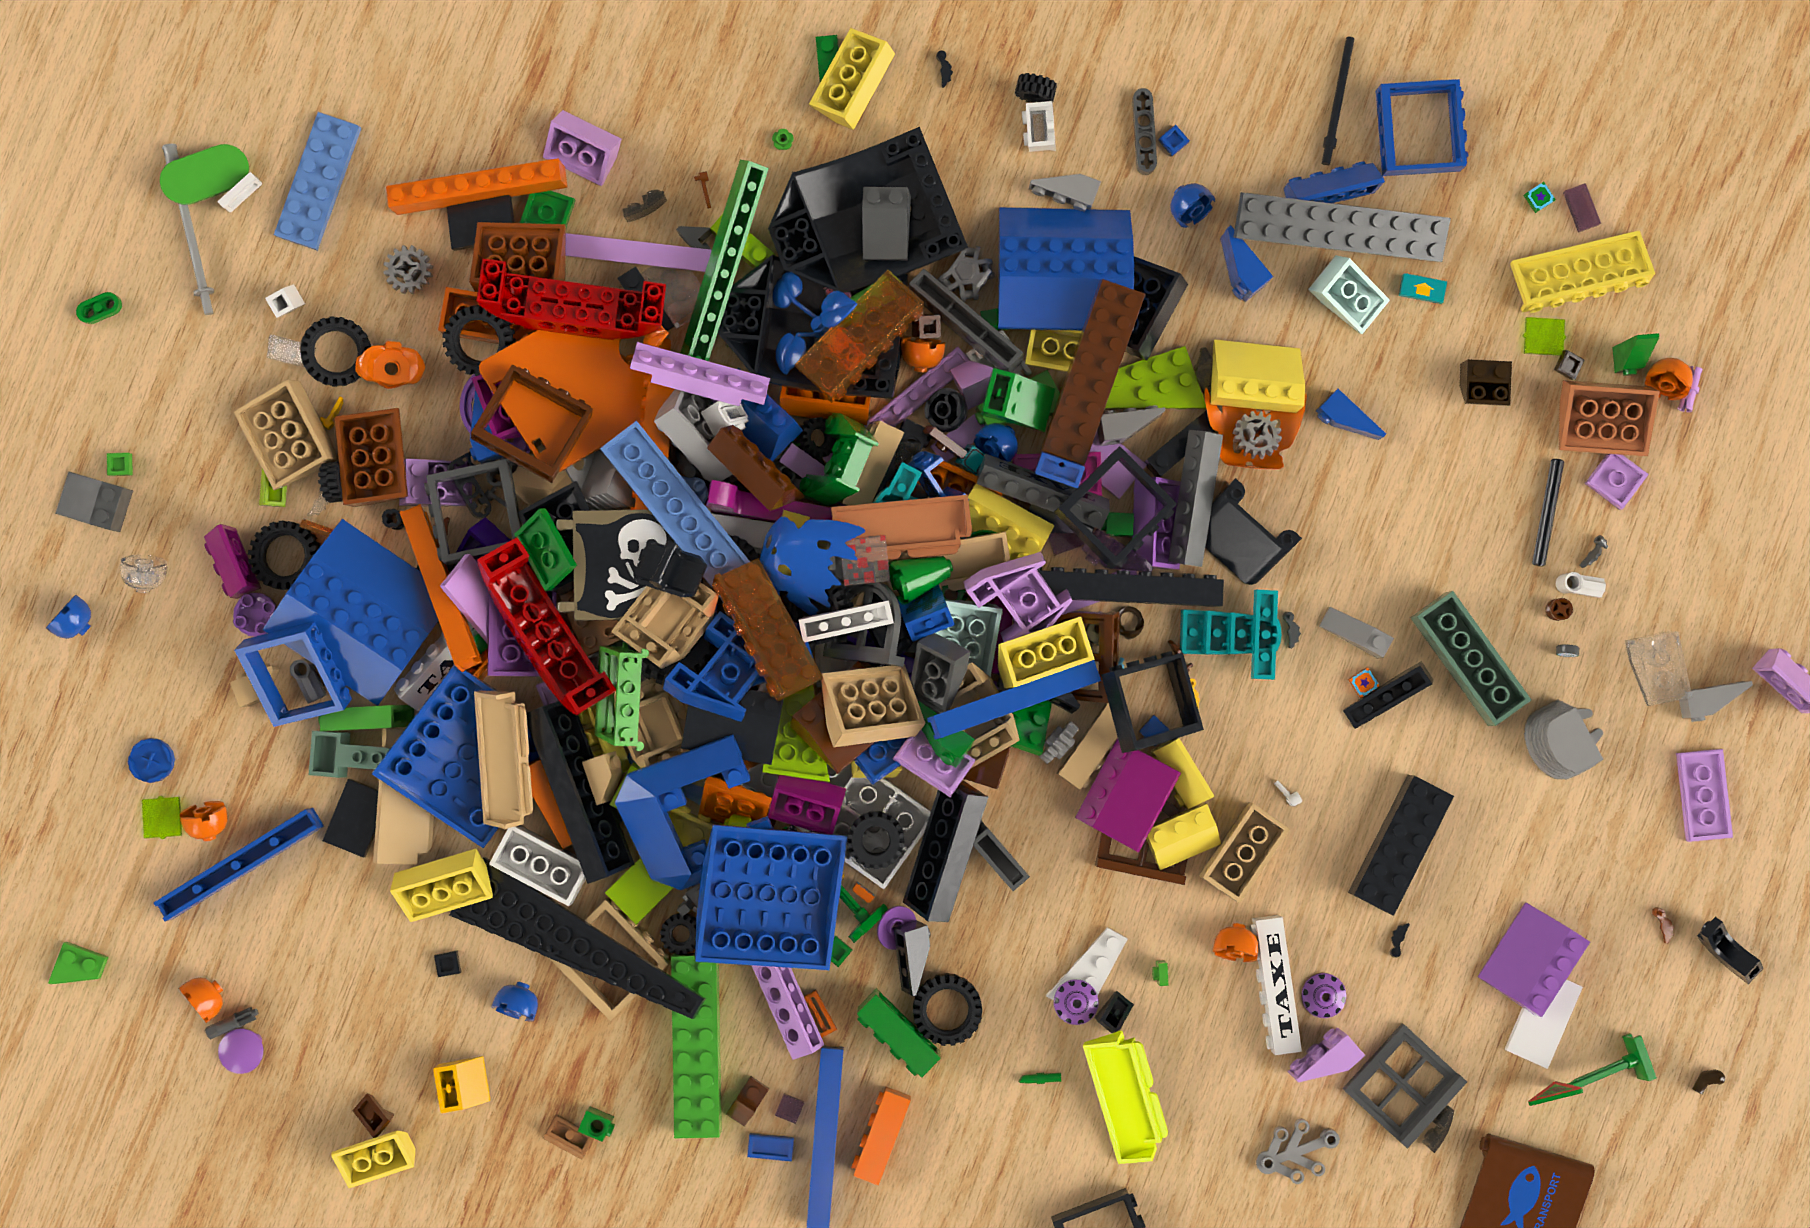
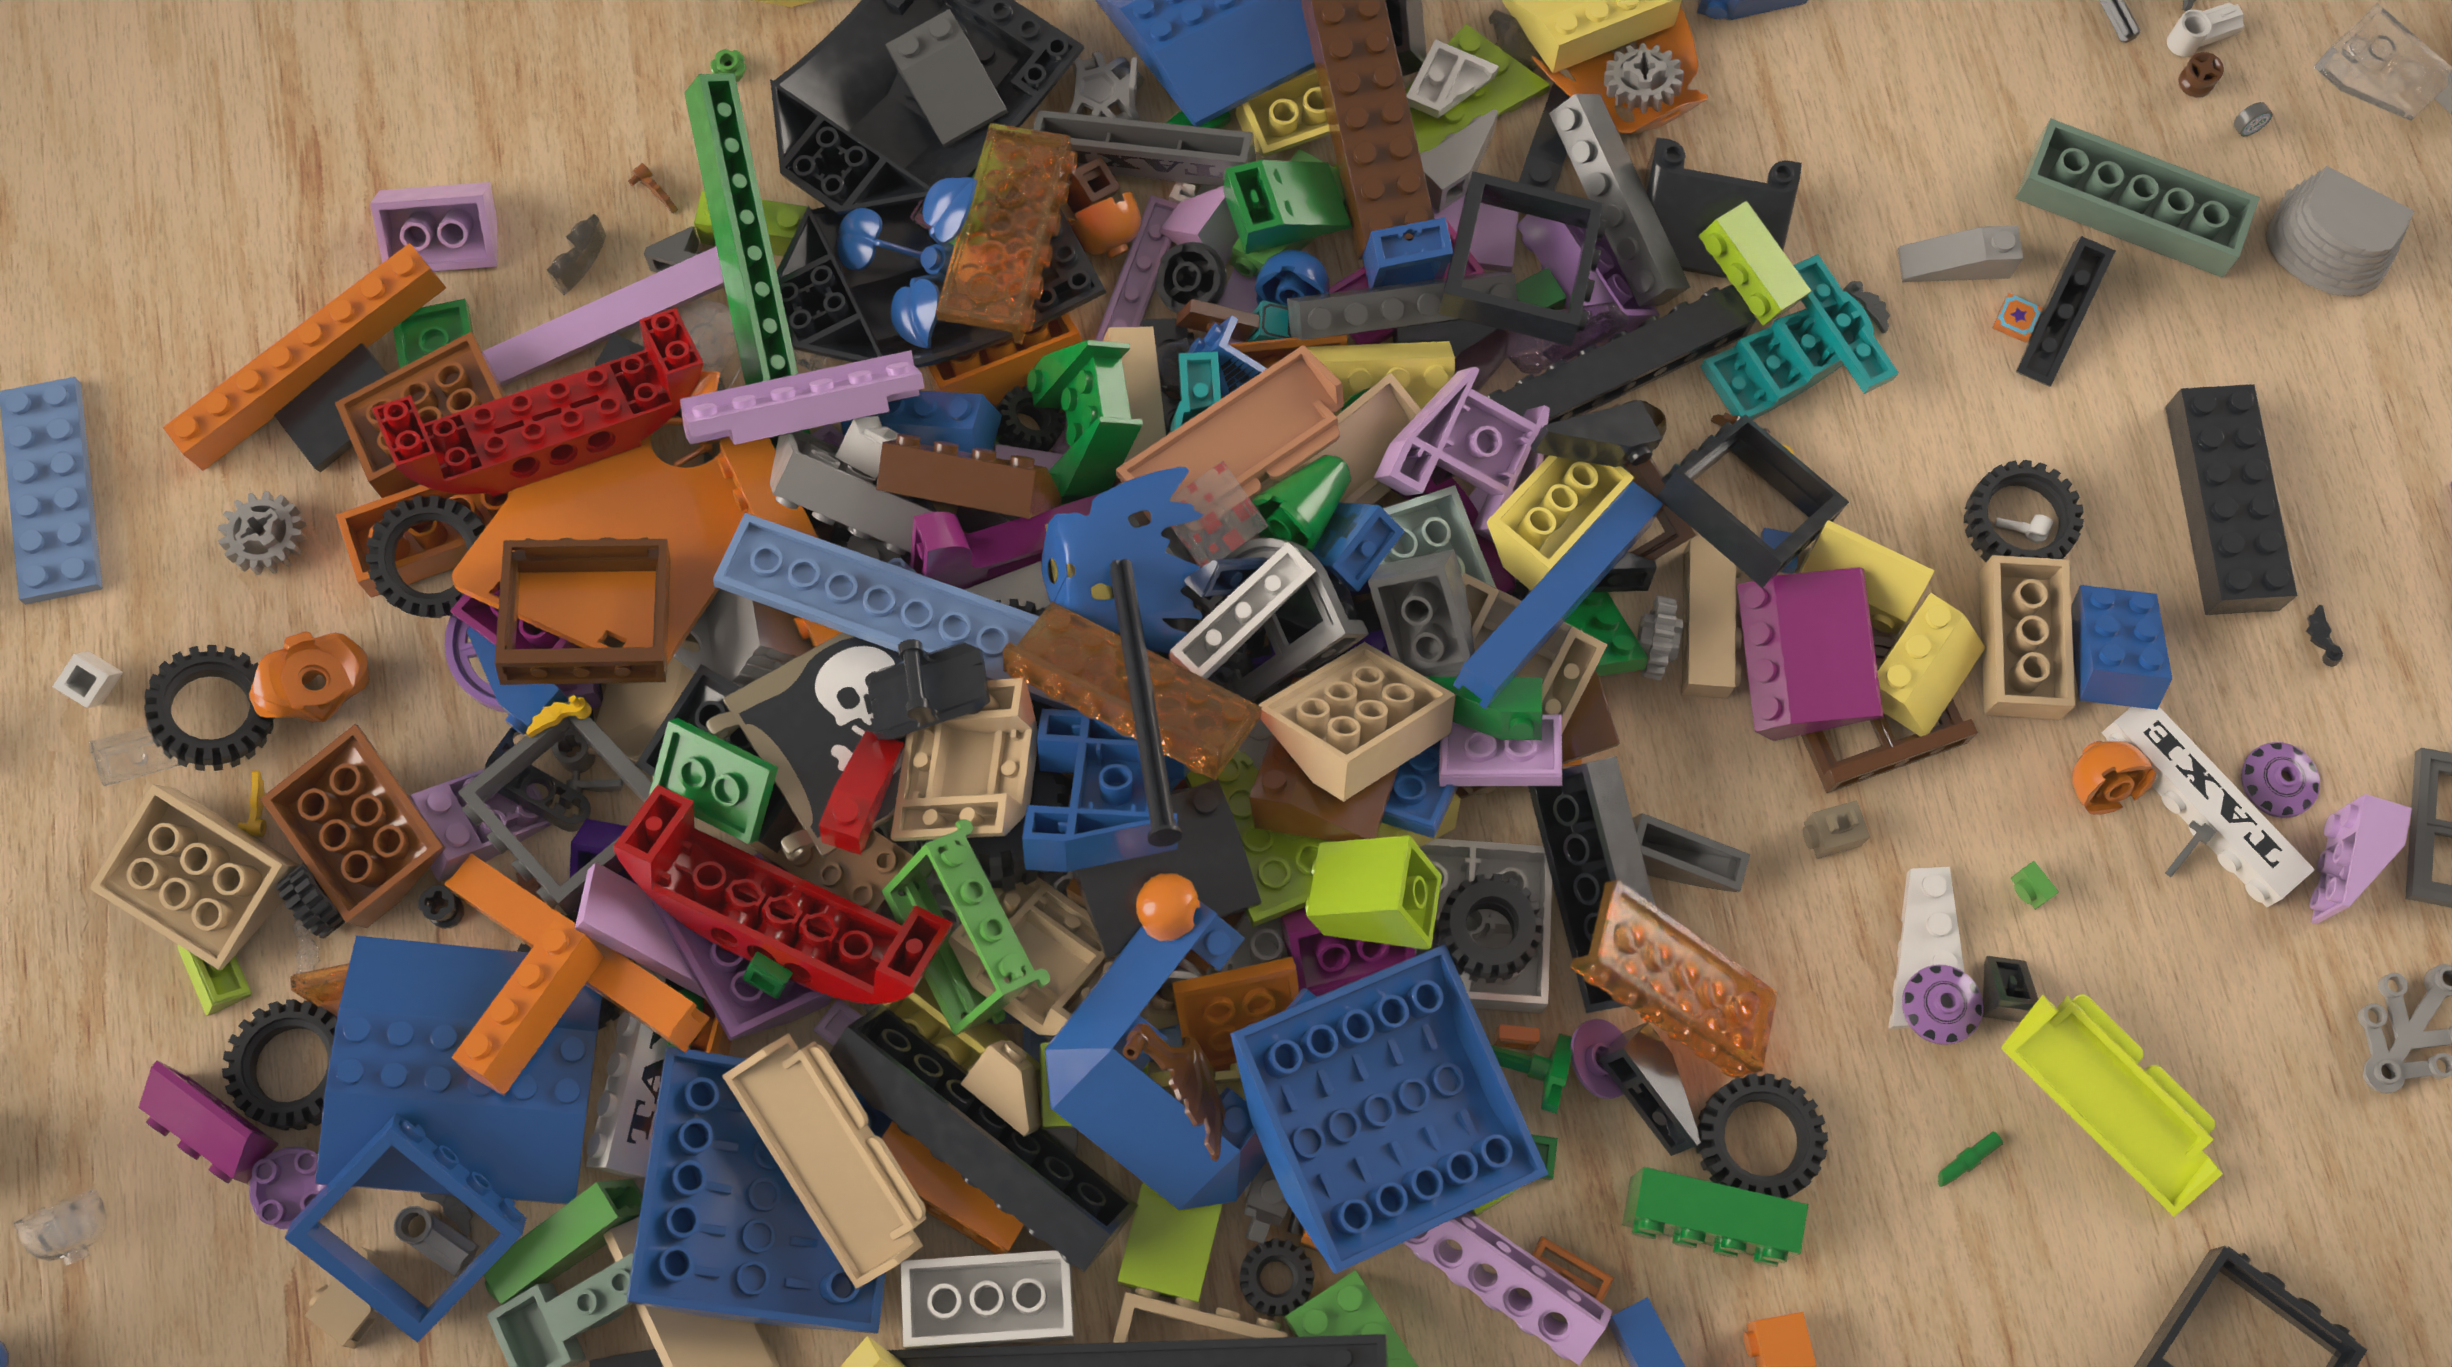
camera: 30 degrees left, 15 degrees down
(399, 609) = (528, 1007): none -> orange brick
(492, 463) = (556, 712): none -> yellow piece
(521, 655) = (767, 975): none -> green tile
(610, 600) = (860, 793): none -> red slope
(685, 831) = (1190, 1079): none -> reddish brown animal
(720, 745) = (1167, 906): none -> orange hair
(762, 646) = (1161, 815): none -> black axle
(825, 795) = (1375, 891): none -> lime slope
(850, 597) = (1223, 575): none -> dark blue slope
(950, 920) = (1679, 982): none -> clear orange bracket
(1083, 887) = (1835, 829): none -> dark tan brick
(1090, 633) = (1602, 437): none -> black slope
(1150, 376) = (1448, 79): none -> white wing
(1239, 577) = (1754, 263): none -> lime brick
(1260, 1001) = (2203, 834): none -> dark grey piece
(1284, 886) = (2119, 647): none -> blue brick
(1315, 785) = (2038, 480): none -> black tyre

